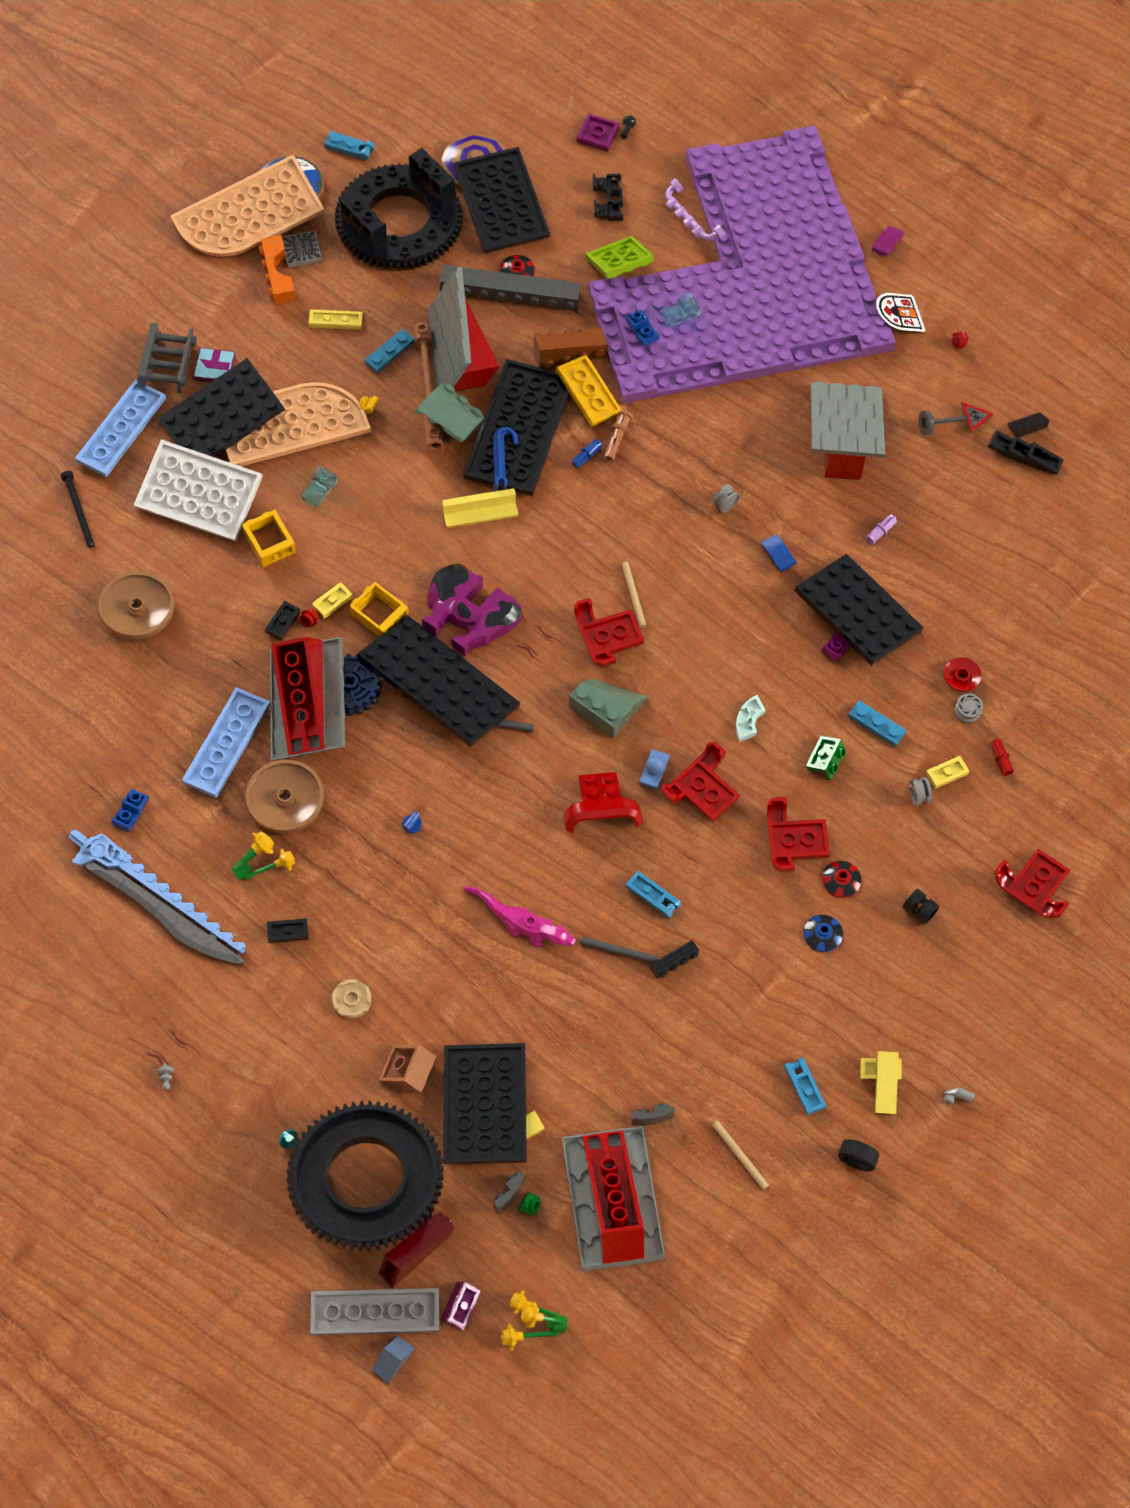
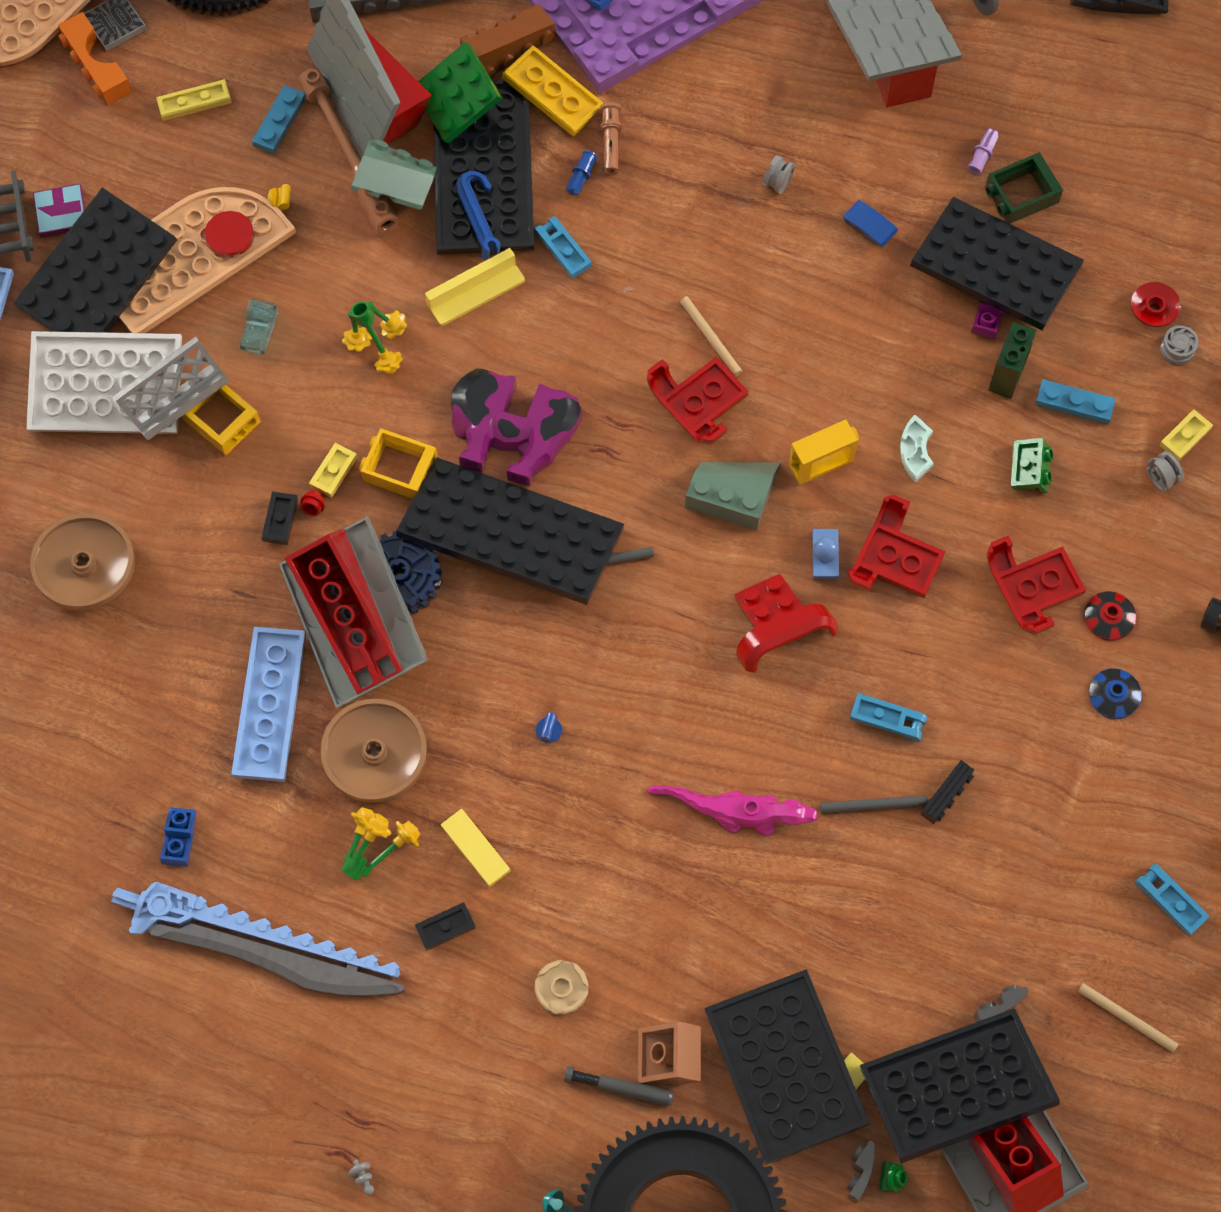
camera: 15 degrees left, 5 degrees up
(244, 517) = (180, 398): none -> light grey fence
(323, 417) = (229, 234): none -> red tile
(329, 886) = (475, 848): none -> light yellow tile
(373, 1083) = (623, 1087): none -> dark grey piece
(384, 517) = (358, 338): none -> yellow plant
(519, 370) = (459, 92): none -> green plate
(553, 501) = (563, 247): none -> dark azure plate
(598, 1154) = (959, 1085): none -> black plate
(679, 698) = (823, 451): none -> yellow window
(840, 675) = (1012, 360): none -> dark green window
(899, 549) = (1042, 175): none -> dark green window

